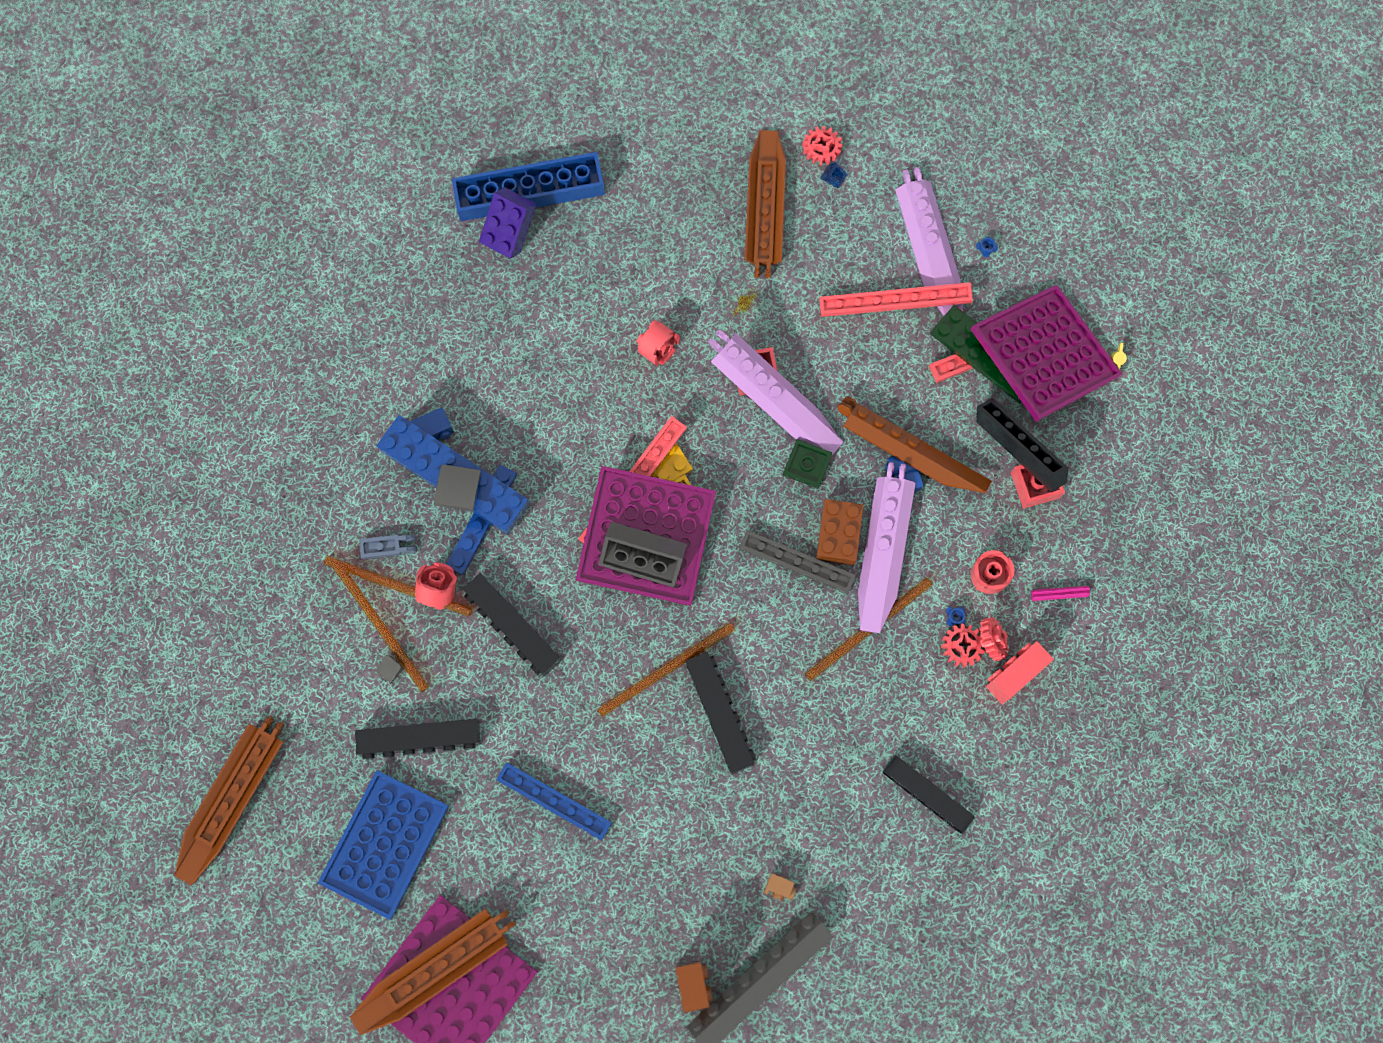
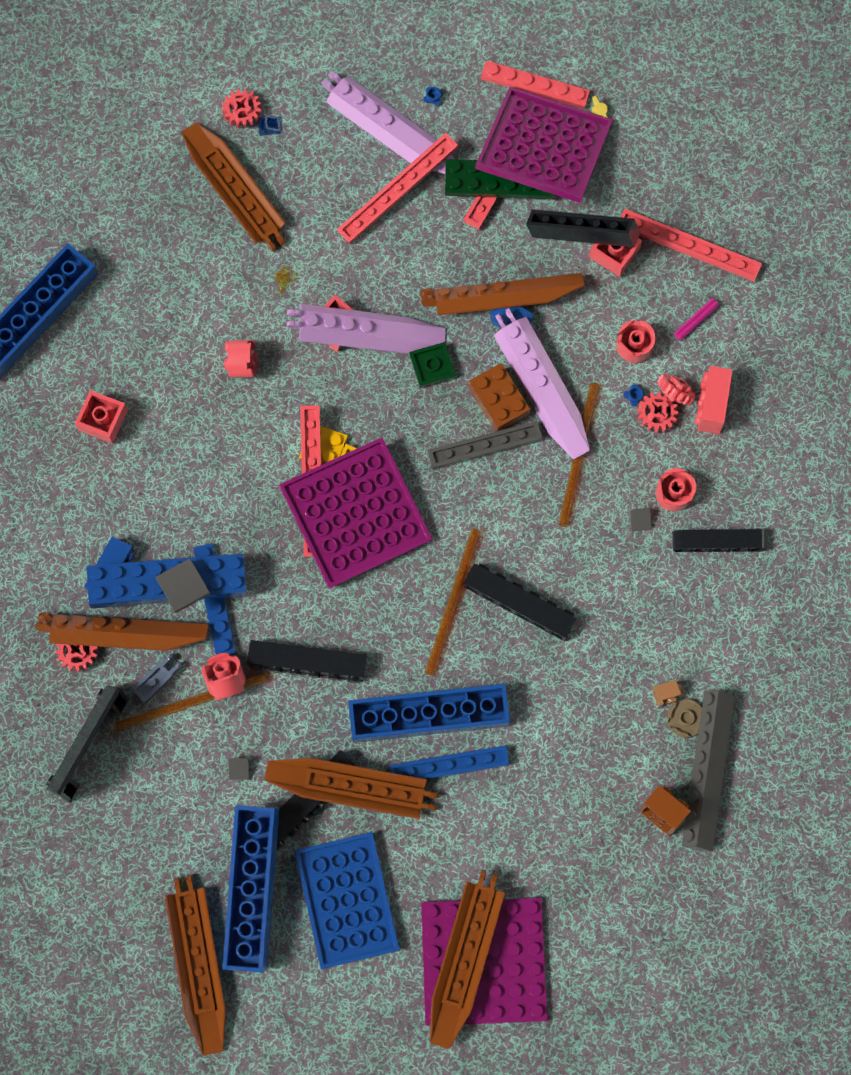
camera: 40 degrees left, 0 degrees up
(245, 573) = (109, 699): none -> black slope
(314, 773) = (251, 888): none -> blue brick
(336, 473) = (72, 656): none -> coral gear
(380, 626) = (200, 741): clear orange piece -> none
(388, 487) = (119, 632): none -> dark orange hinge
(459, 755) = (350, 785): none -> dark orange hinge
(507, 222) = (42, 352): dark purple brick -> none
(512, 307) = (101, 416): none -> coral brick
(571, 745) = (428, 713): none -> blue brick
(642, 554) = (366, 527): dark grey slope -> none
(773, 919) = (684, 718): none -> dark tan tile
(876, 724) = (640, 519): none -> dark grey slope
(936, 720) = (683, 483): none -> coral brick
(1080, 298) = (535, 84): none -> coral plate
(1107, 530) = (695, 246): none -> coral plate

